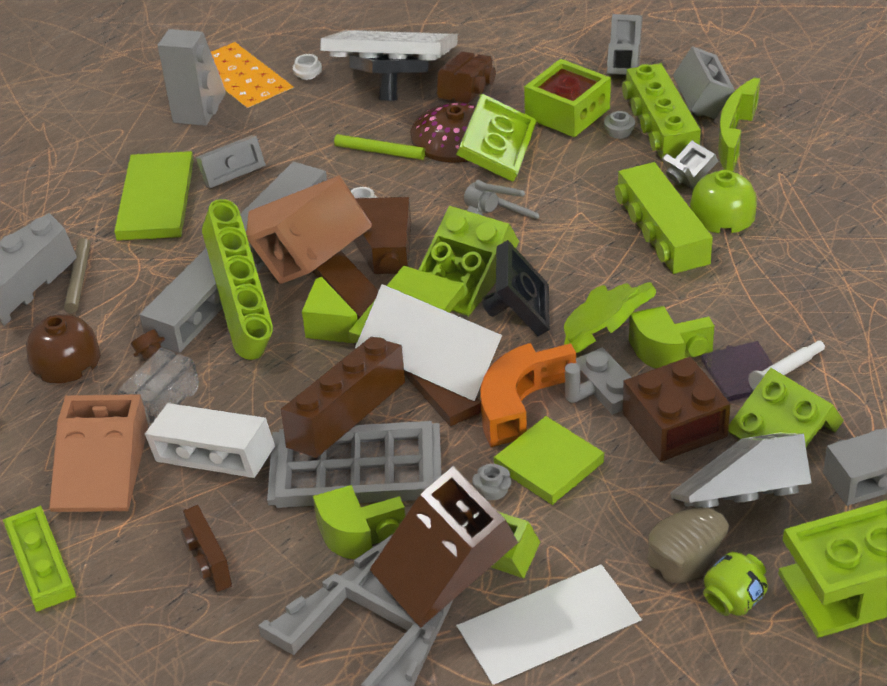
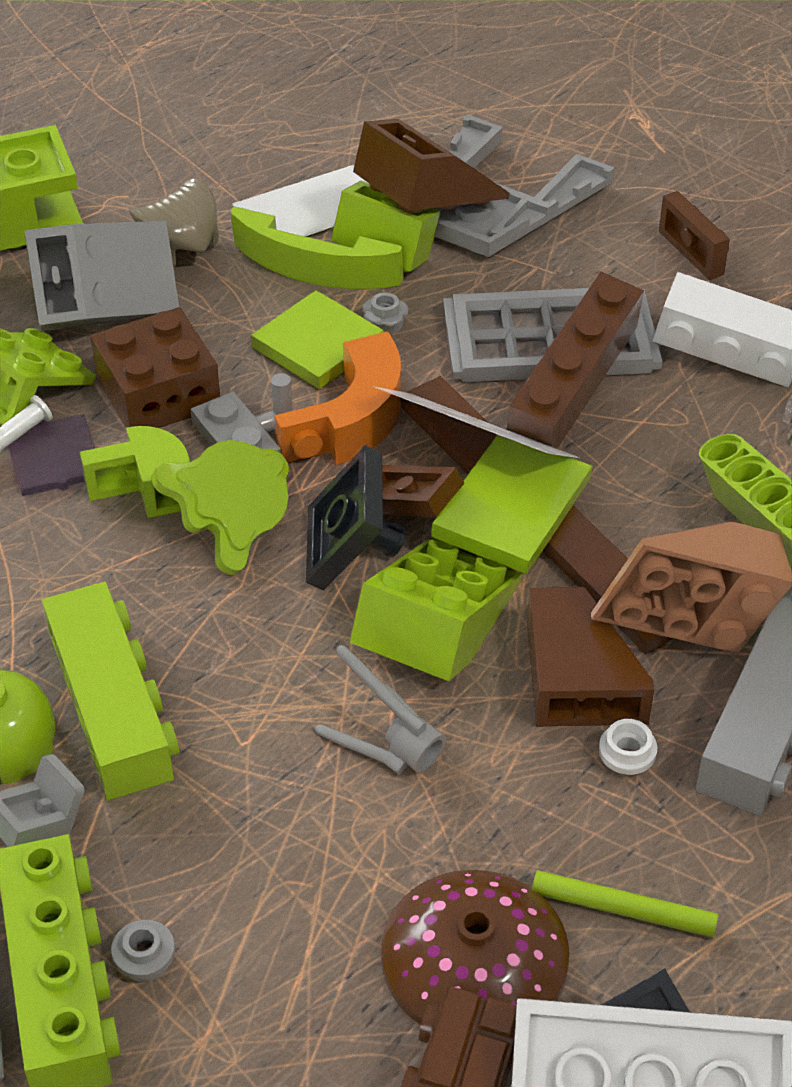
camera: 175 degrees right, 5 degrees up
(327, 314) = (623, 505): lime slope -> none
(351, 528) = (535, 251): lime brick -> none
(475, 307) = (418, 489): none -> reddish brown plate
(497, 137) = (390, 888): lime tile -> none
(567, 97) = (242, 980): lime piece -> none
(570, 523) = (314, 261): none -> lime slope
(735, 584) = (127, 194): lime head -> none

